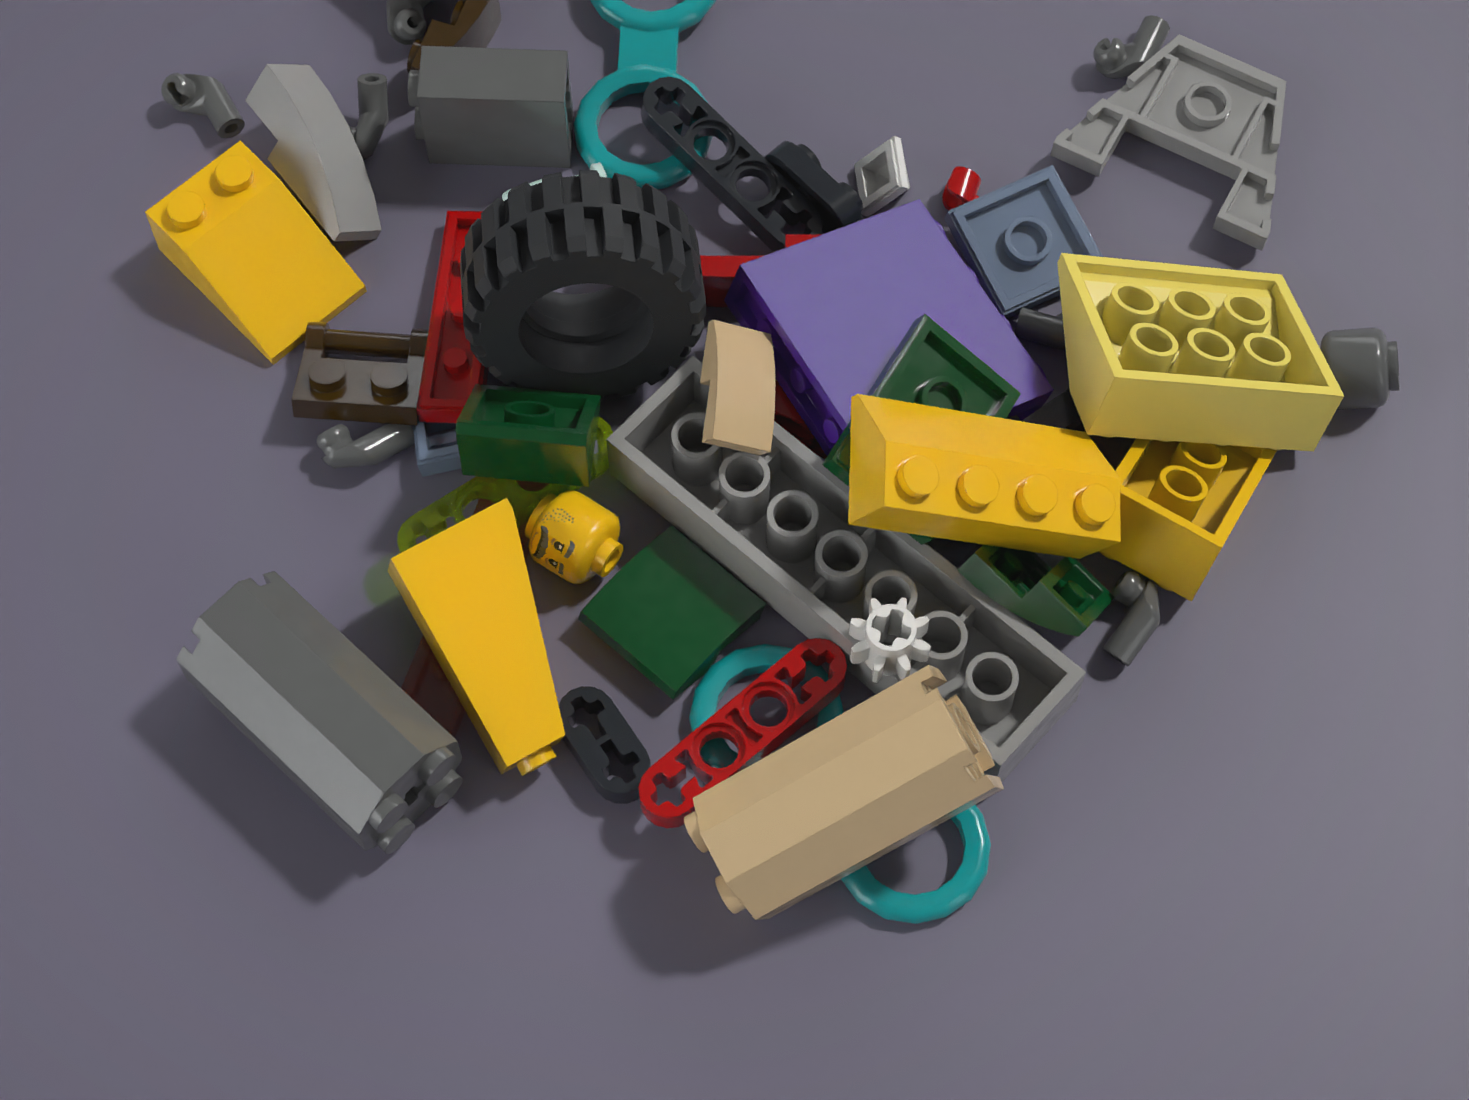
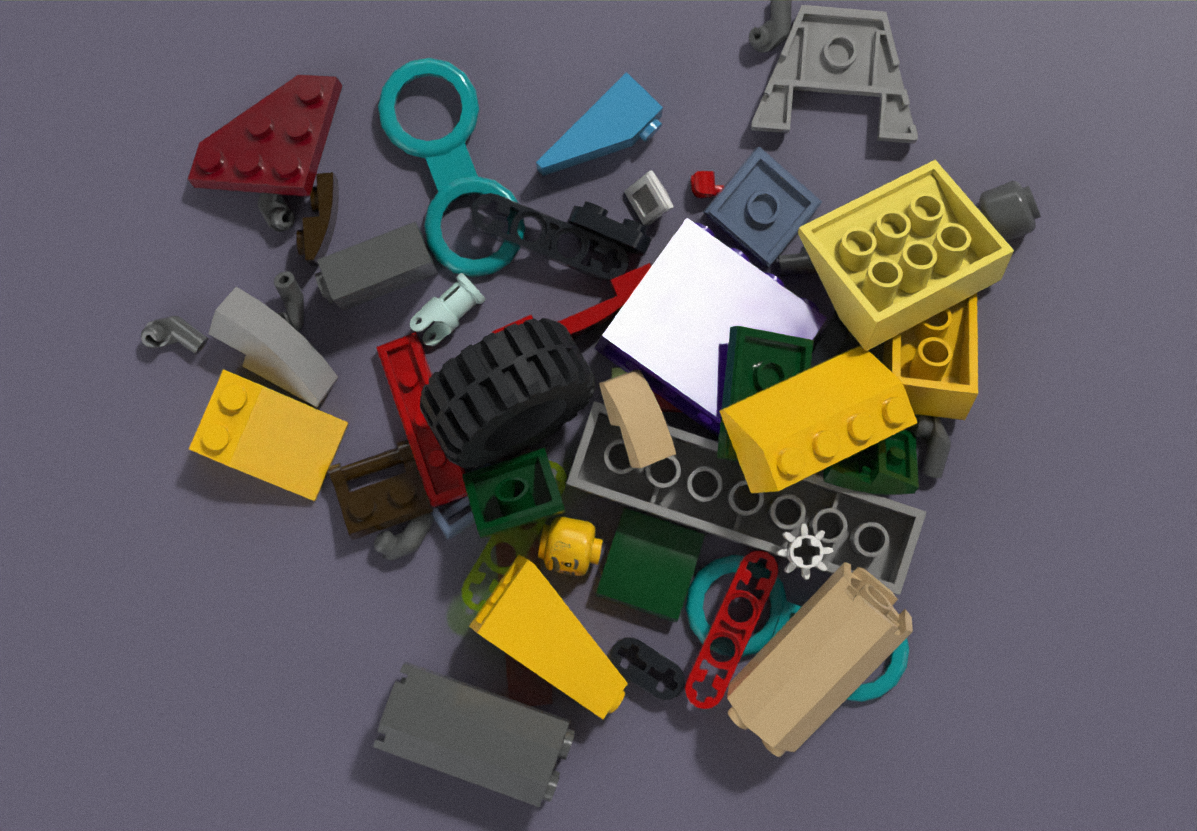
camera: 25 degrees left, 20 degrees up
(862, 77) = (608, 126): none -> dark azure slope

